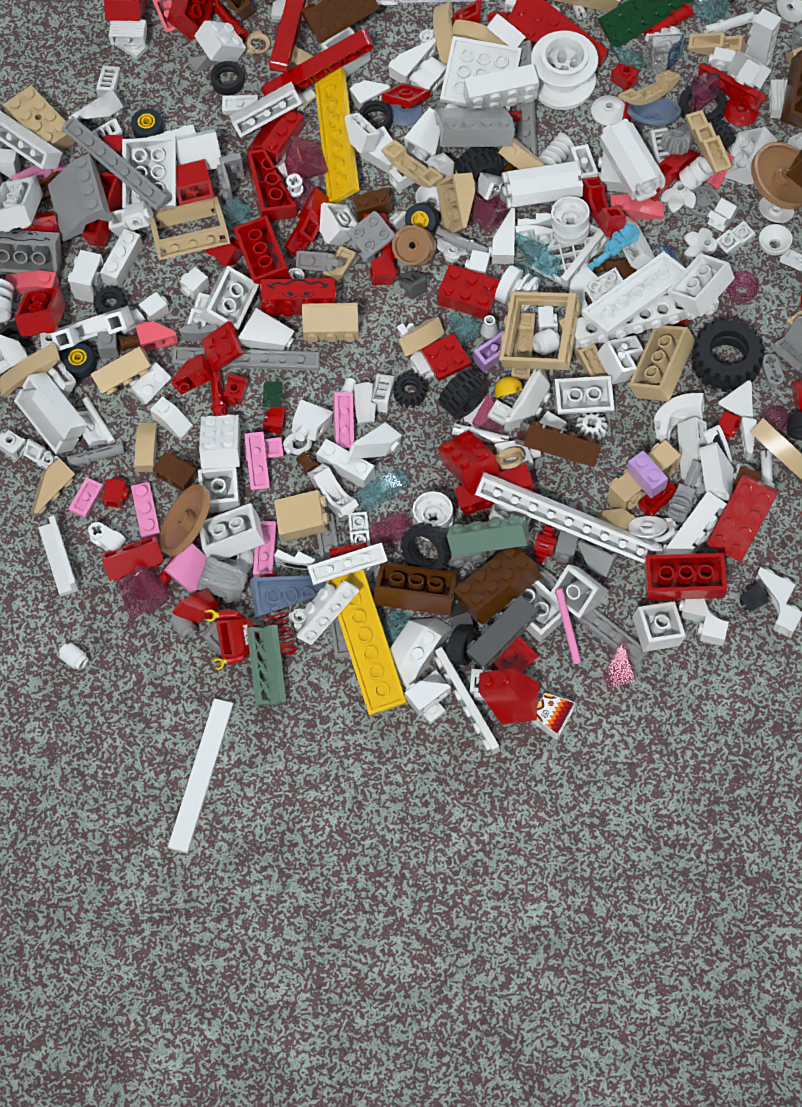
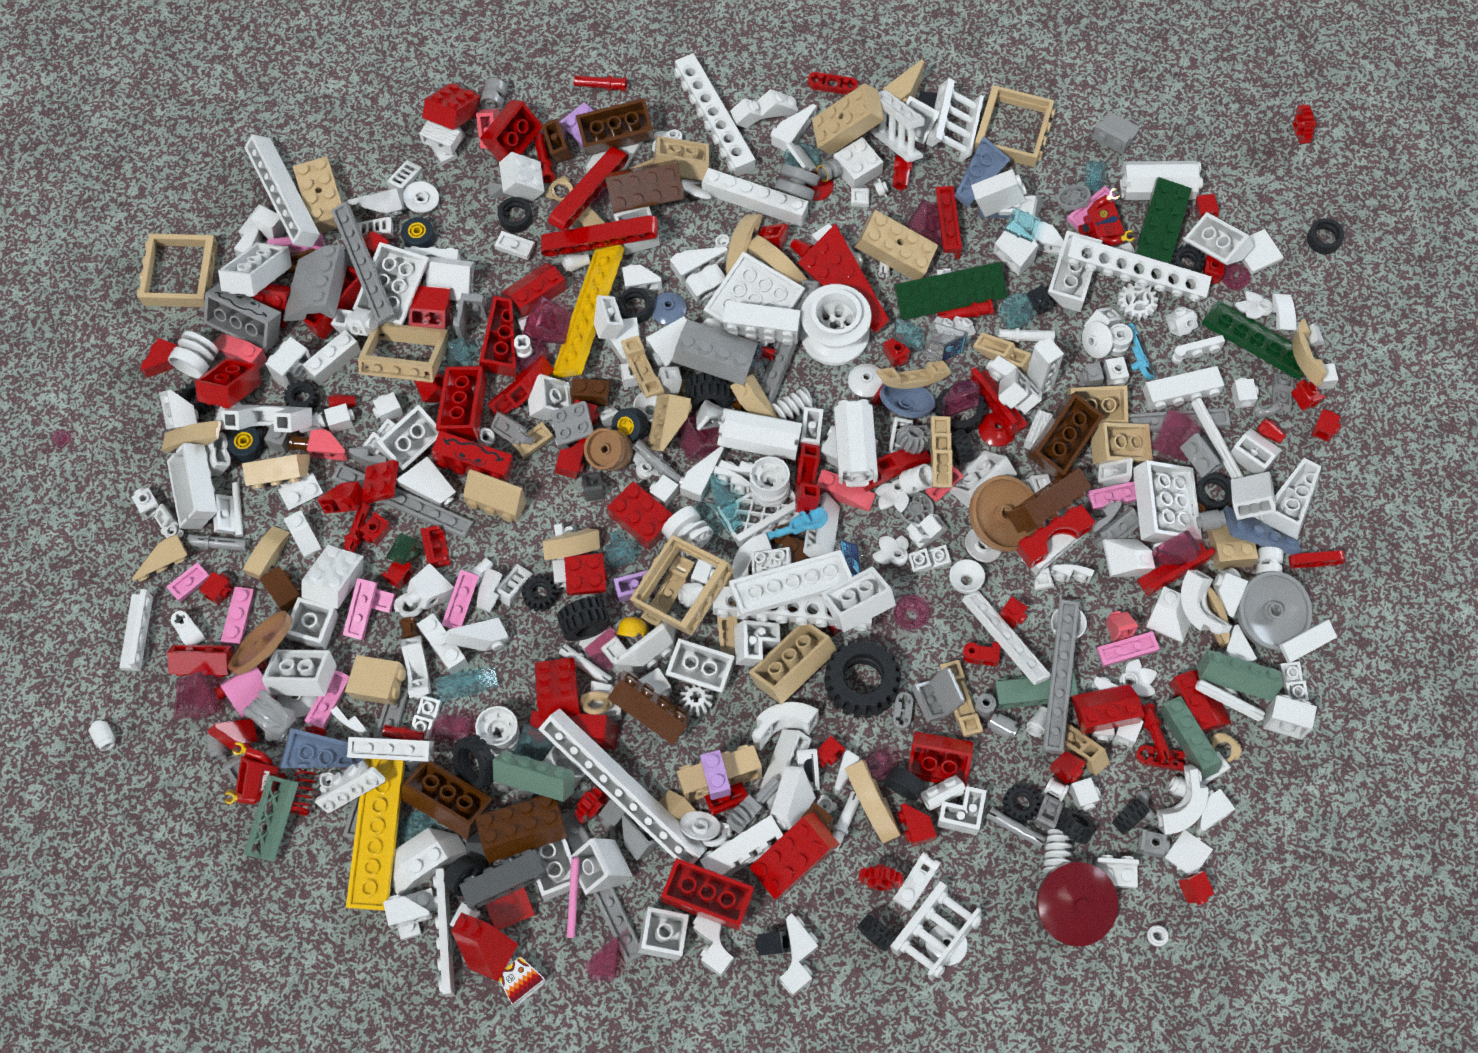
camera: 20 degrees right, 0 degrees up
(133, 92) = (422, 191): none -> white dish
(144, 293) = (339, 399): none -> red cone
(200, 776) = (162, 903): white tile -> none
(265, 109) = (532, 260): white brick -> none
(296, 385) = (435, 546): none -> red hinge
(405, 95) = (672, 294): red plate -> none
(469, 511) = (533, 744): none -> clear light blue piece
(489, 327) = (644, 559): white cone -> none
(505, 31) = (796, 265): white slope -> none
(739, 401) = (852, 731): white piece -> none

